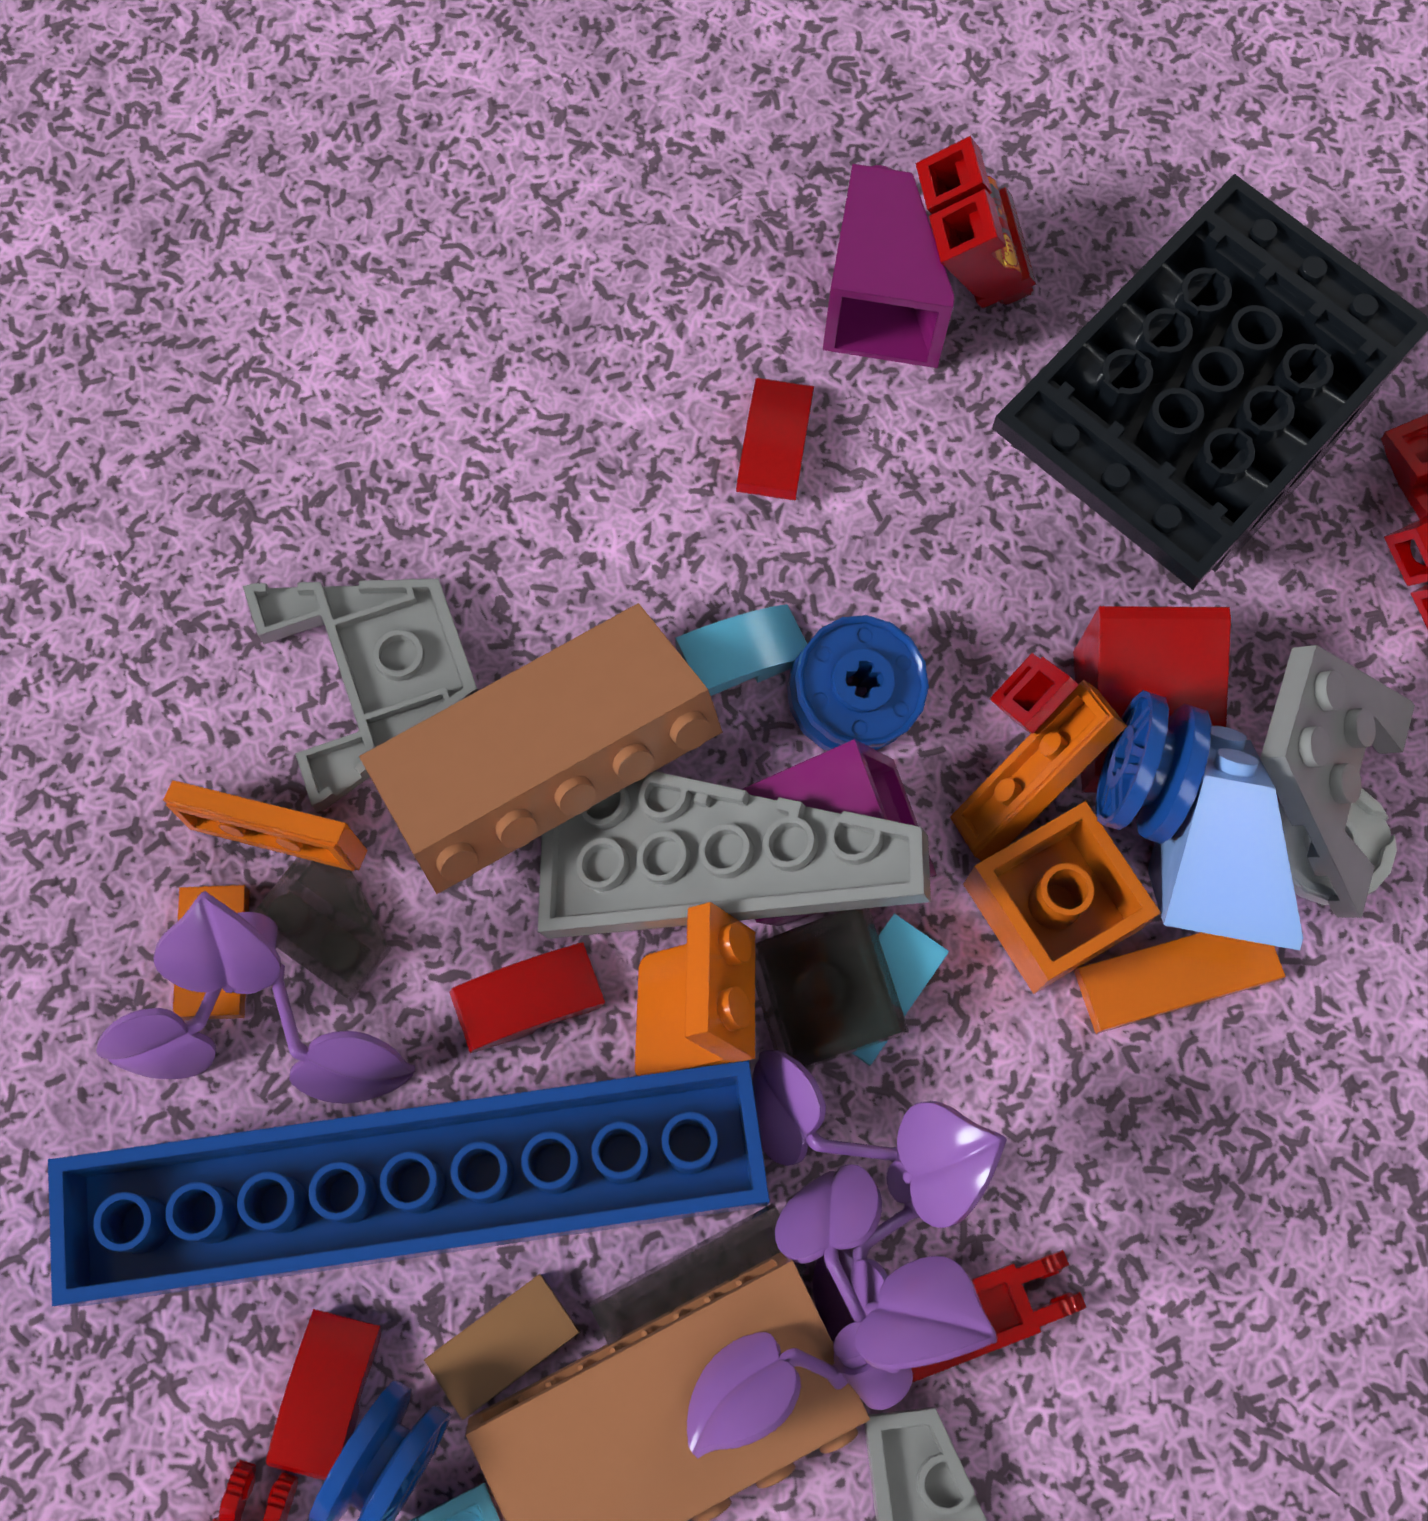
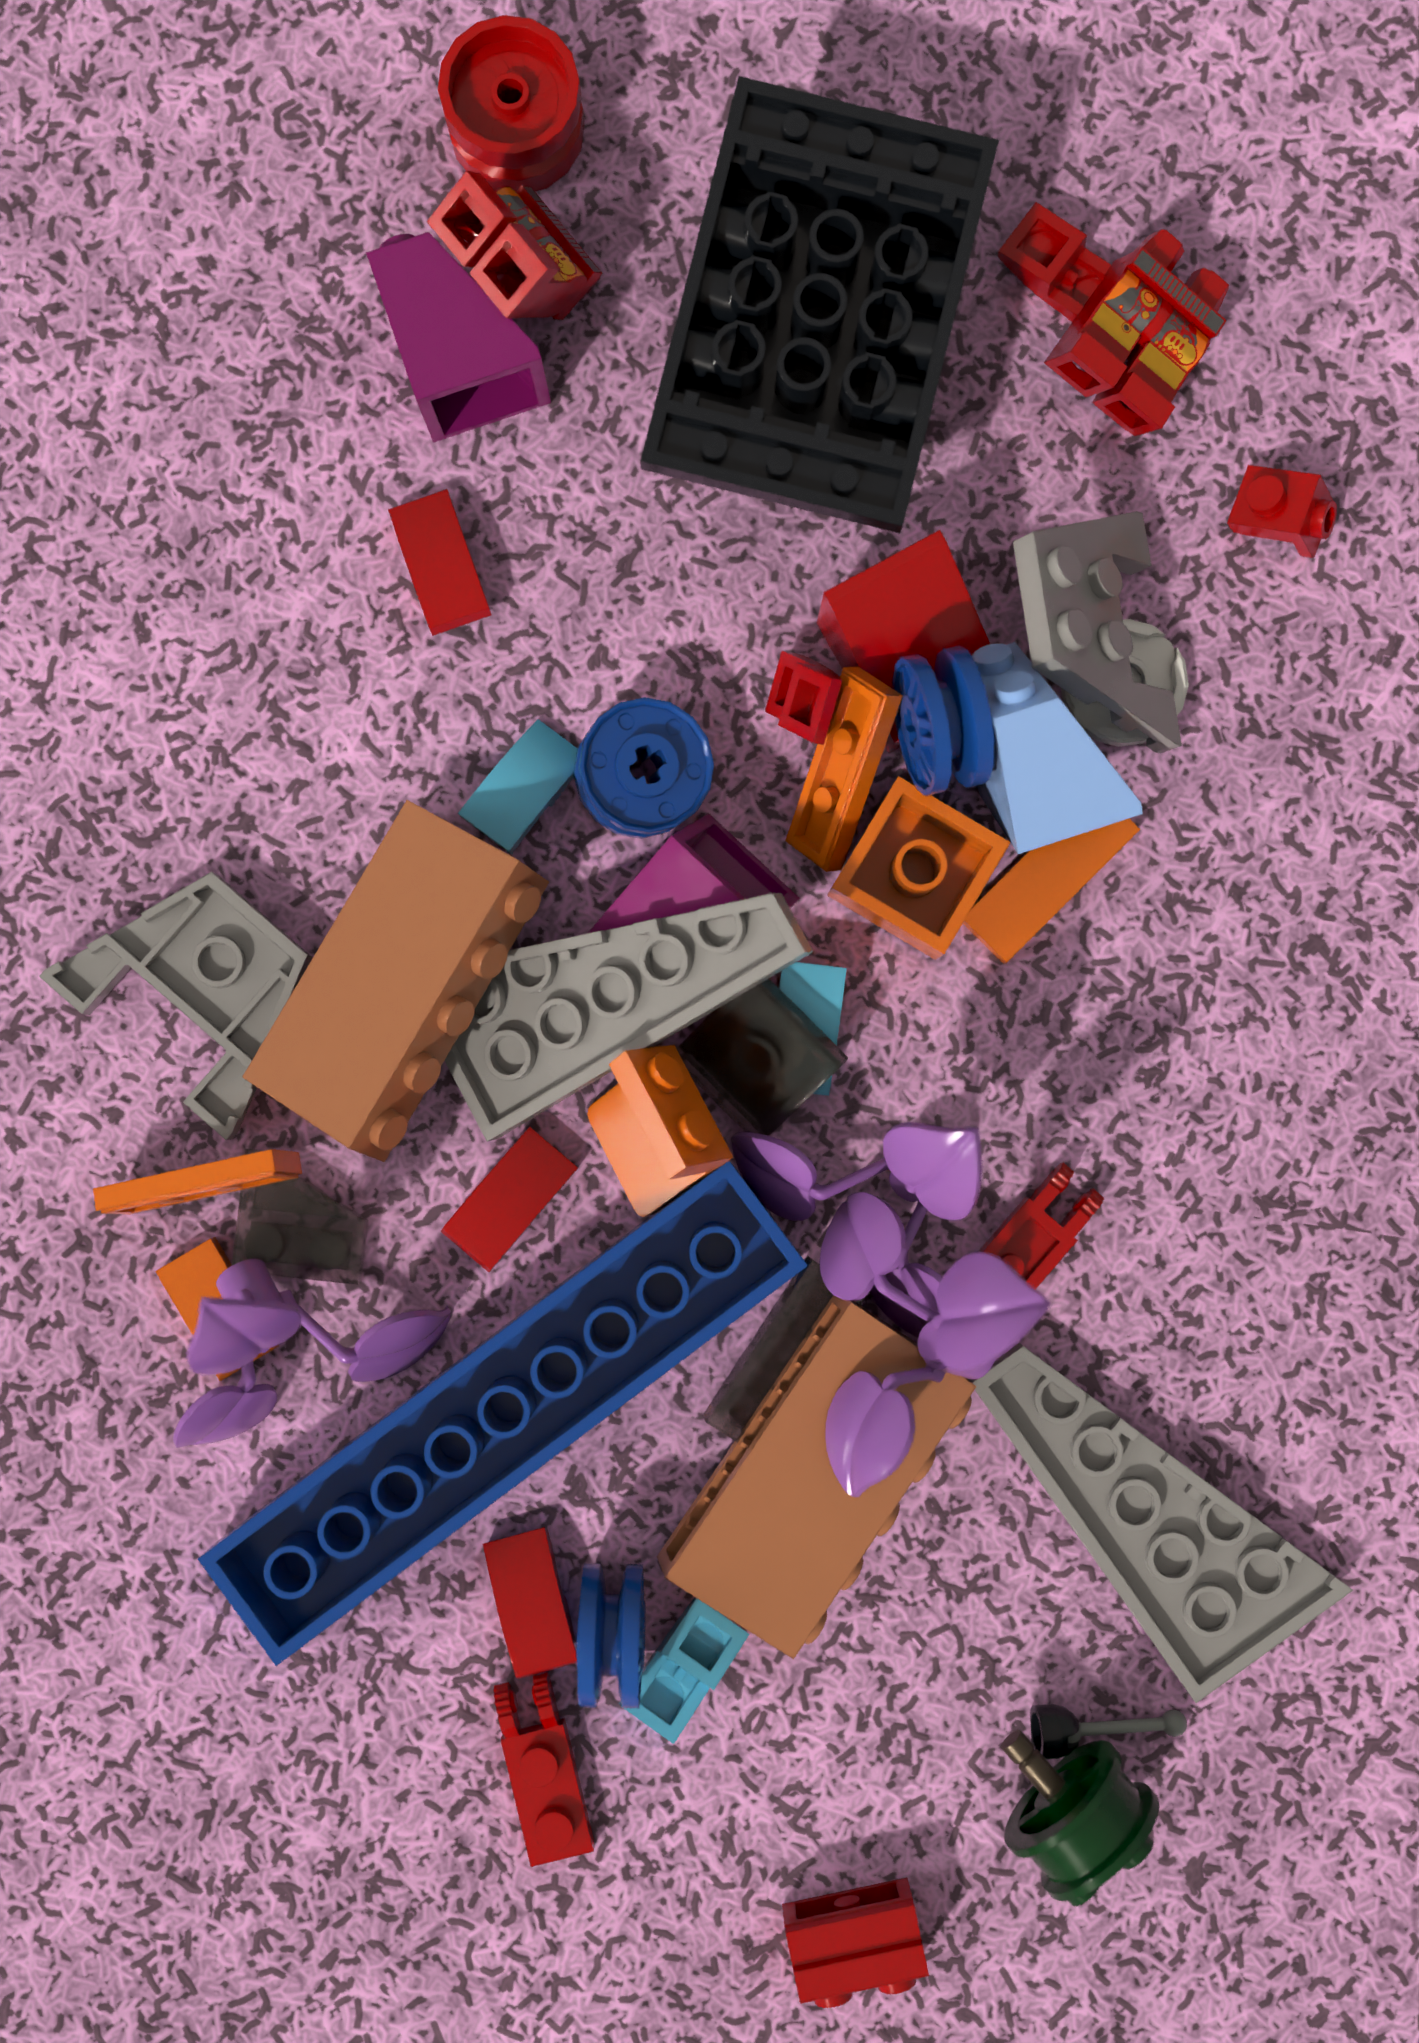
camera: 30 degrees left, 15 degrees up
(501, 1346) = (651, 1486): medium nougat tile -> none
(1034, 128) = (512, 102): none -> red wheel

